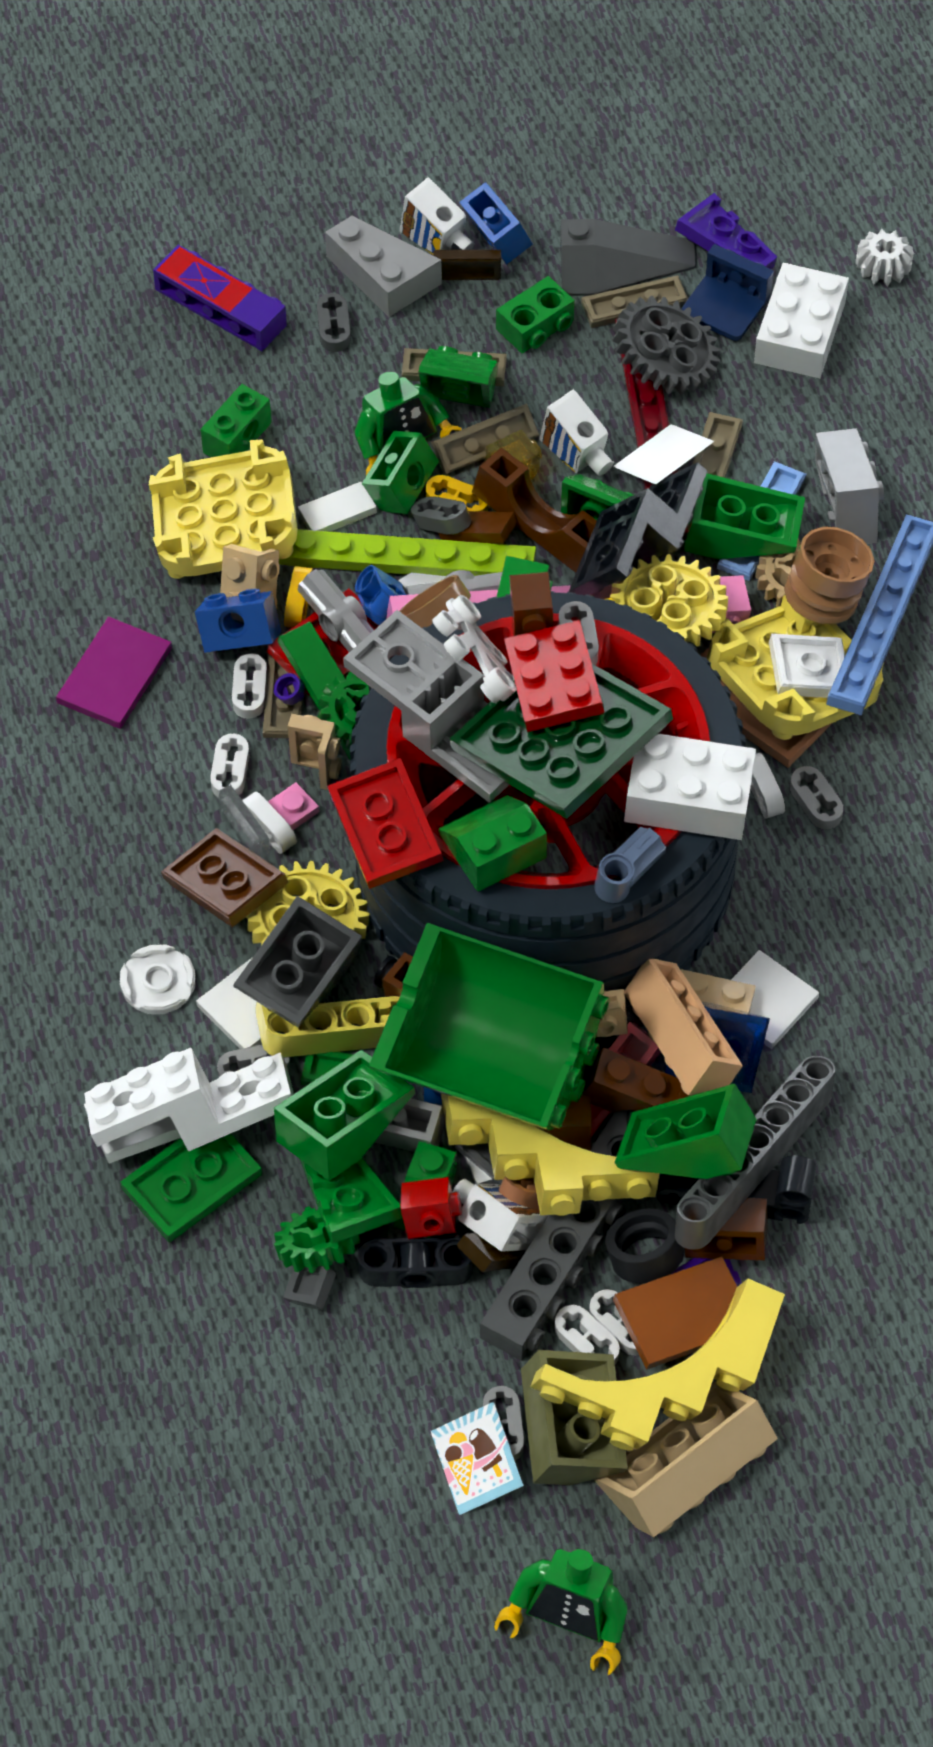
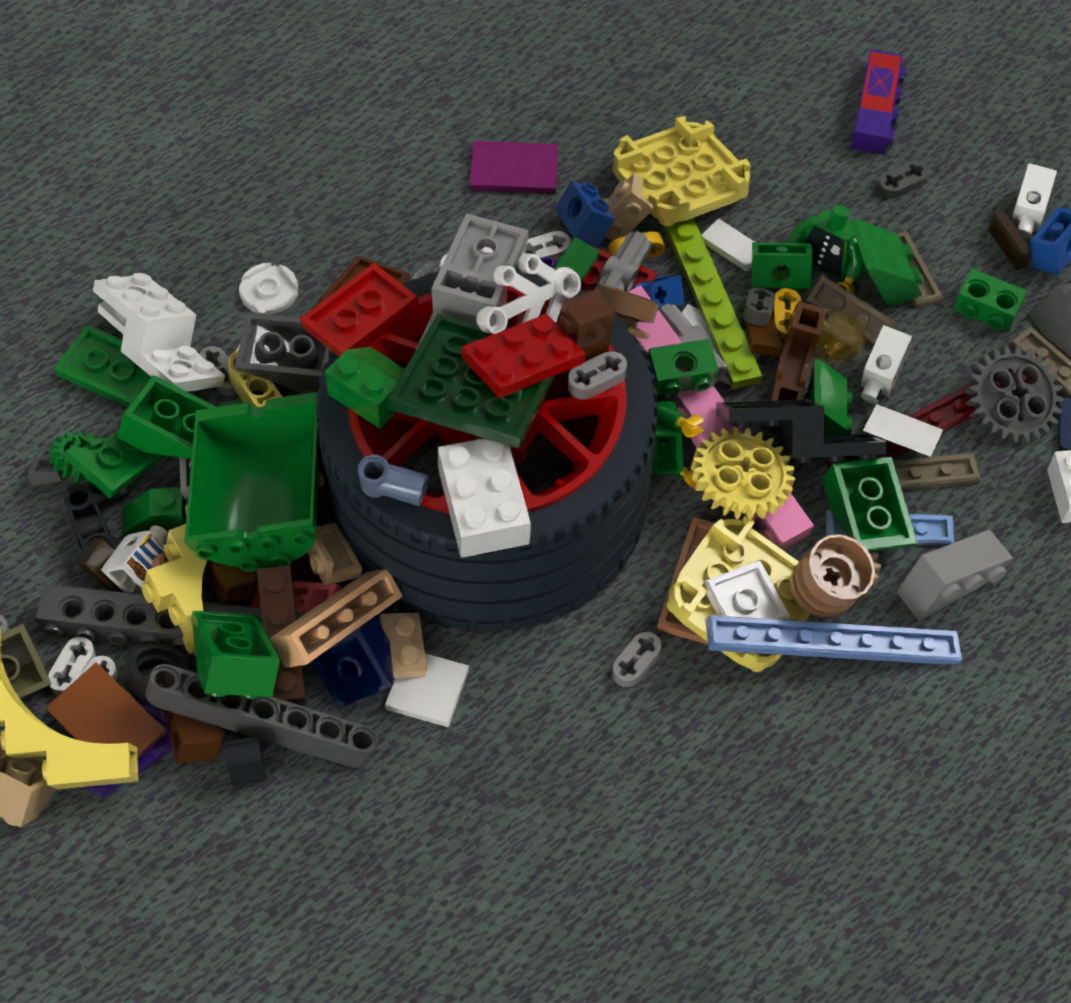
camera: 65 degrees right, 0 degrees up
(236, 422) = (767, 151): green brick -> none
(381, 264) = (970, 186): light grey wedge -> none
(429, 1207) = (122, 510): red brick -> none
(766, 788) = (625, 614): white beam -> none

